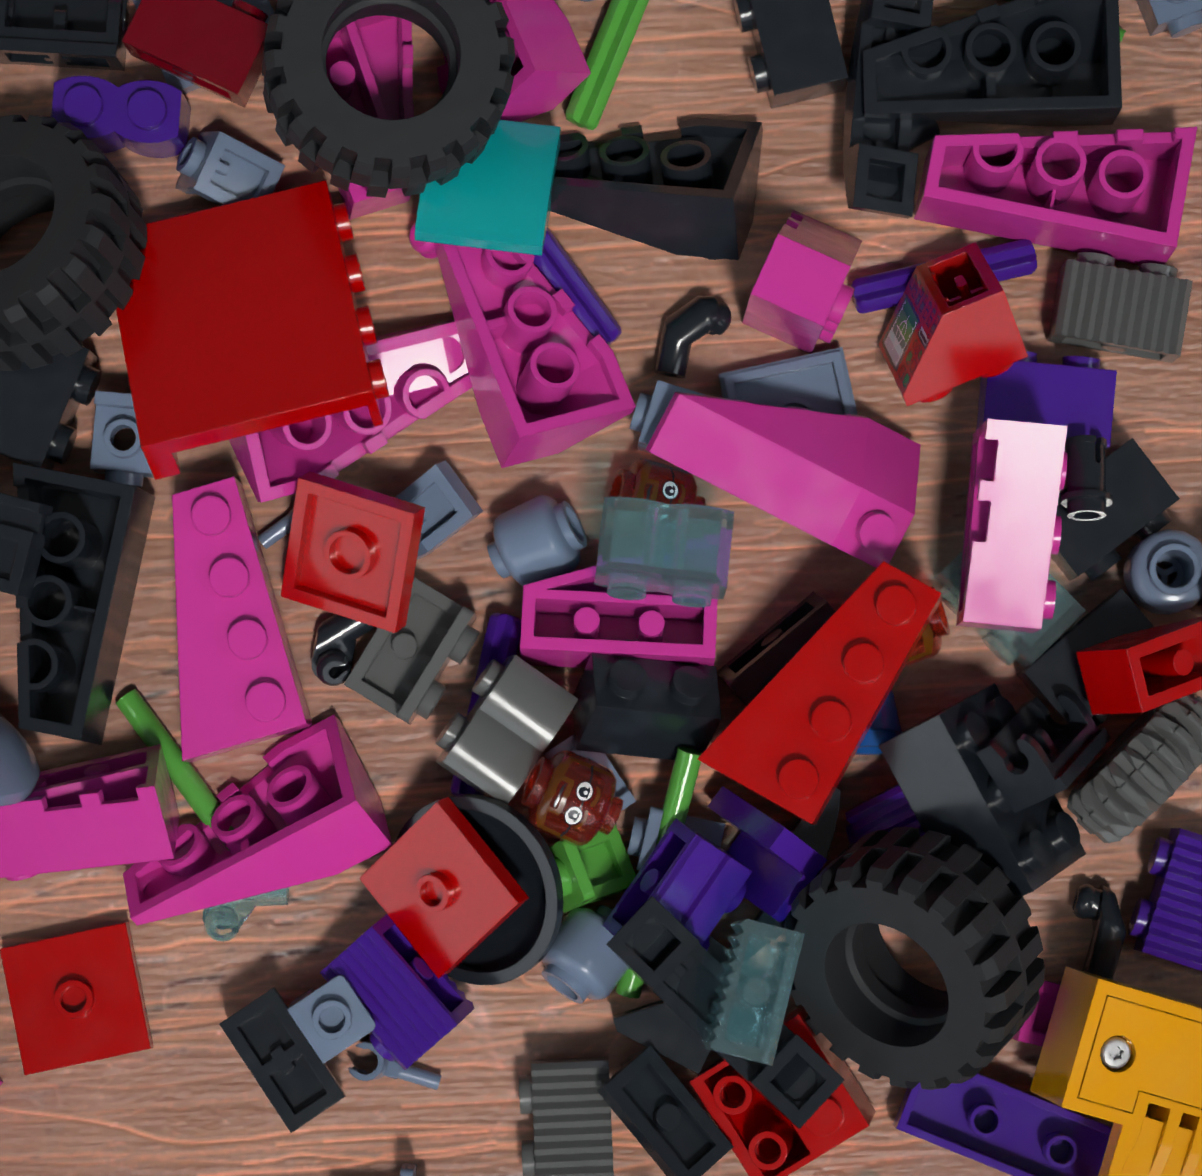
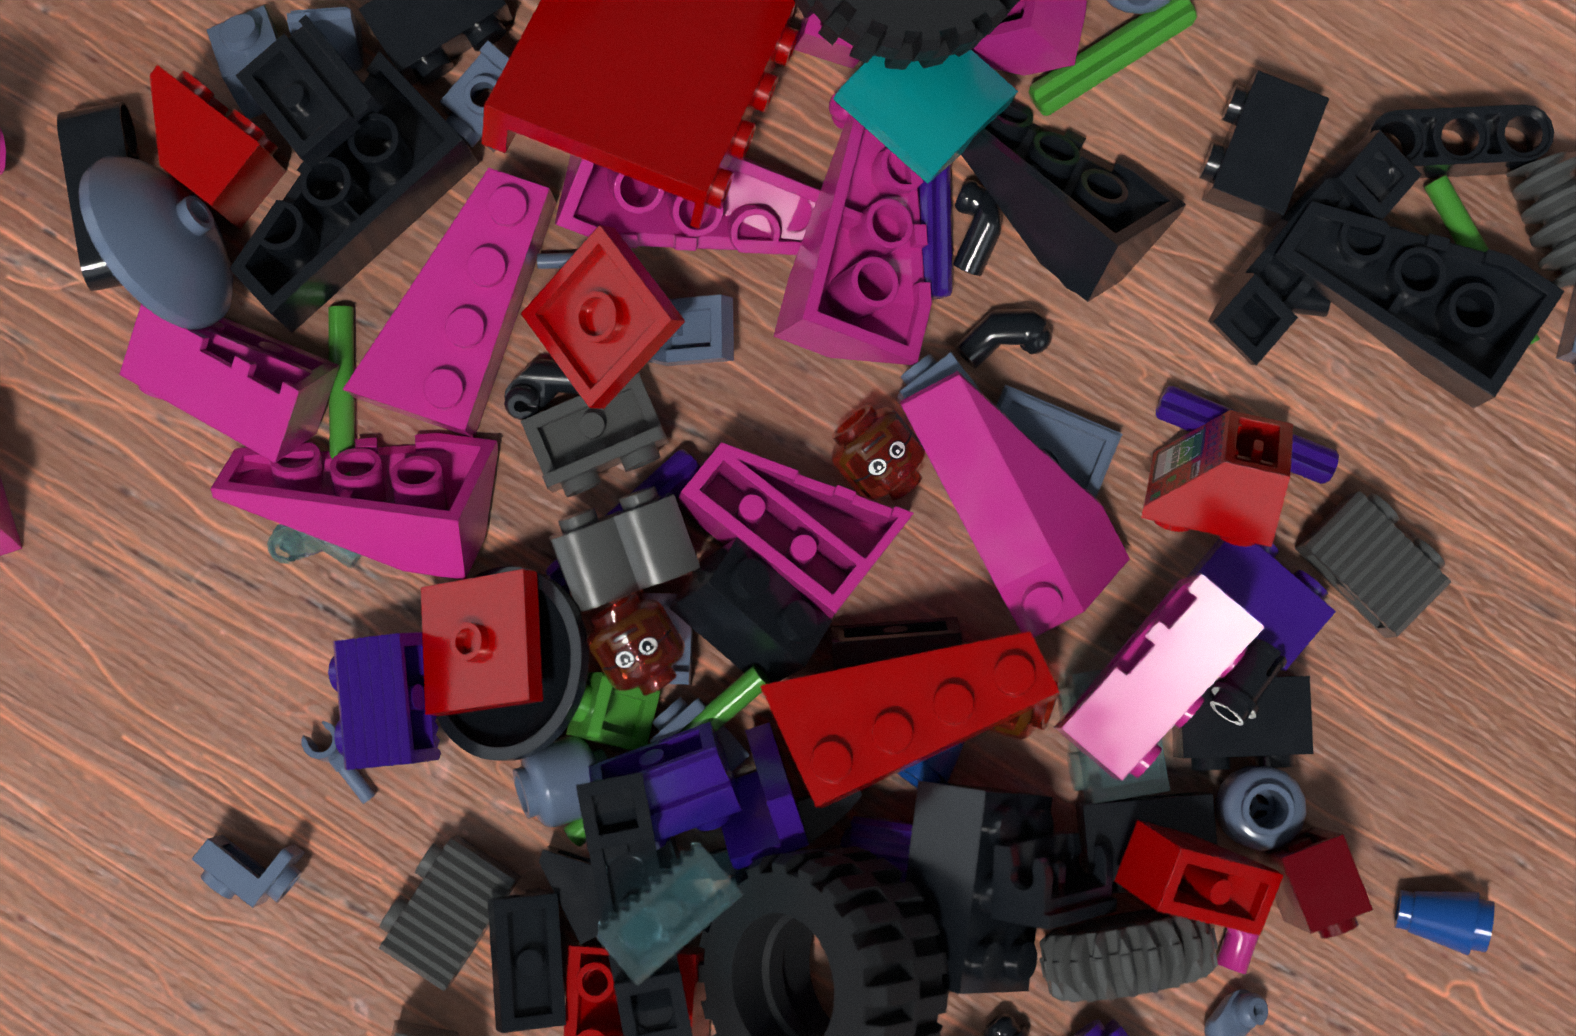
camera: 35 degrees right, 0 degrees up
(76, 998) = (127, 523): red plate -> none
(282, 1060) = (251, 690): black hinge -> none
(331, 1017) = (315, 684): sand blue bracket -> none
(537, 540) = (760, 415): sand blue head -> none
(610, 258) = (983, 229): none -> black arm
(664, 550) = (855, 494): clear light blue brick -> none
(802, 284) = (1125, 357): dark pink wedge -> none
(1064, 189) = (1397, 432): dark pink wedge -> none

